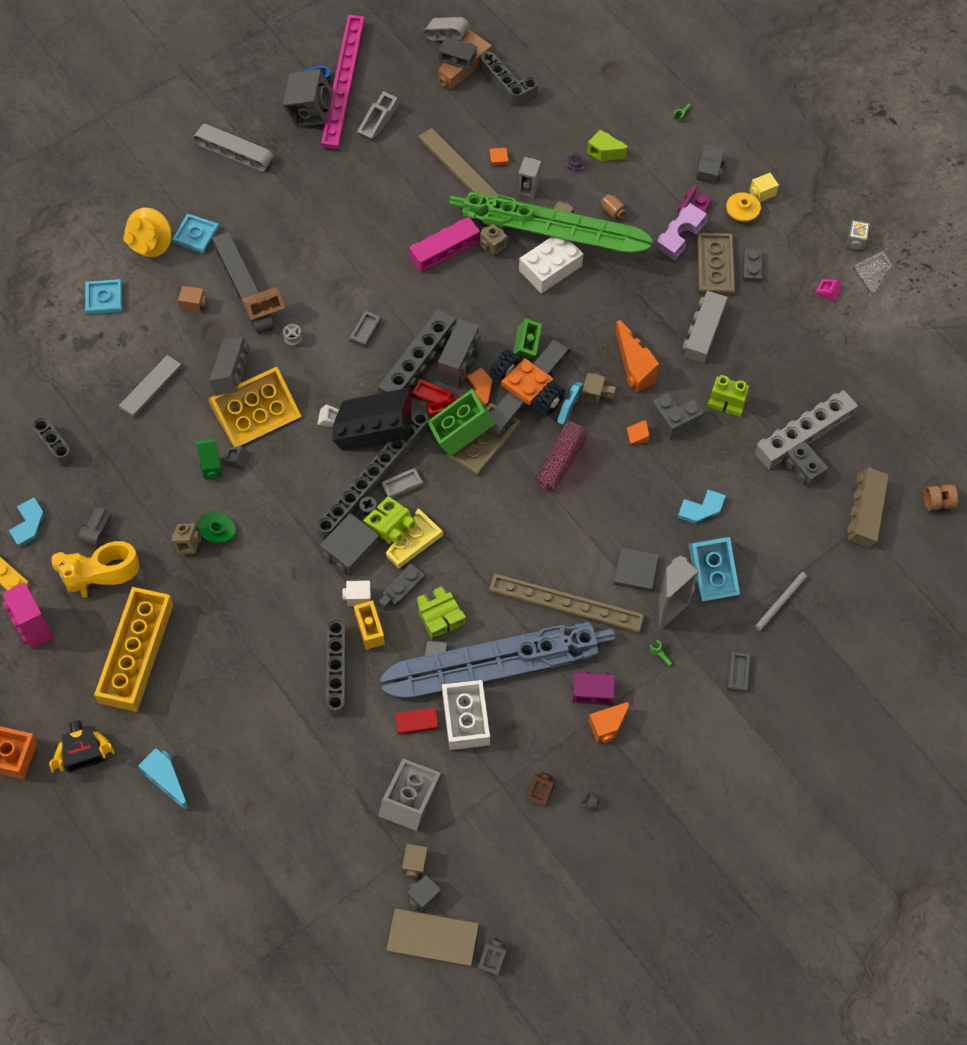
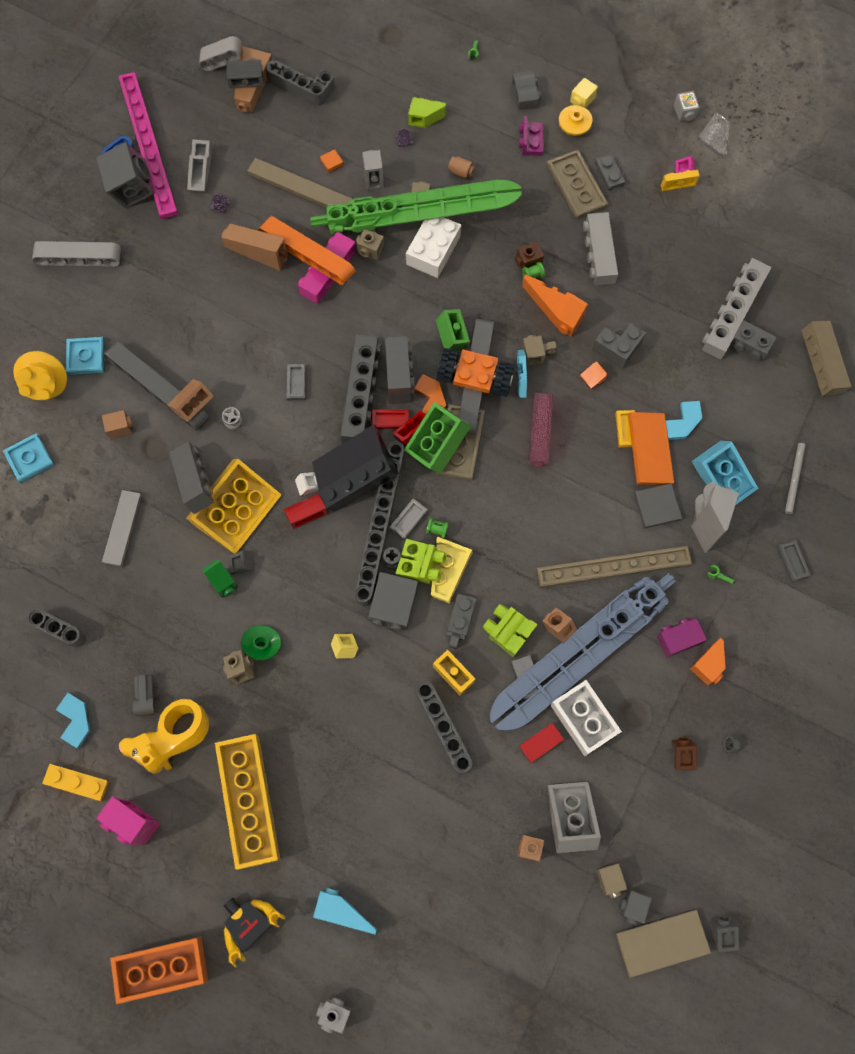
camera: 25 degrees left, 10 degrees up
(112, 854) = (329, 1023): none -> light grey brick
(287, 563) = (344, 646): none -> light yellow slope
(313, 439) = (305, 511): none -> red brick
(356, 800) = (530, 848): none -> medium nougat brick
(357, 592) = (425, 646): white brick -> none
(379, 153) = (219, 198): none -> clear purple plate
(391, 201) = (256, 245): none -> medium nougat slope
(422, 500) = (437, 527): none -> bright green bush
(432, 221) = (310, 251): none -> orange beam
(486, 628) = (559, 625): none -> medium nougat brick
(632, 322) = (534, 271): none -> bright green bush
(633, 307) = (529, 255): none -> reddish brown brick
(644, 491) = (623, 428): none -> yellow tile
(656, 516) = (650, 448): none -> orange tile
(689, 219) = (538, 152): lavender arch -> none
(728, 391) = (658, 303): lime hips -> none
(814, 297) = (680, 180): none -> yellow plate

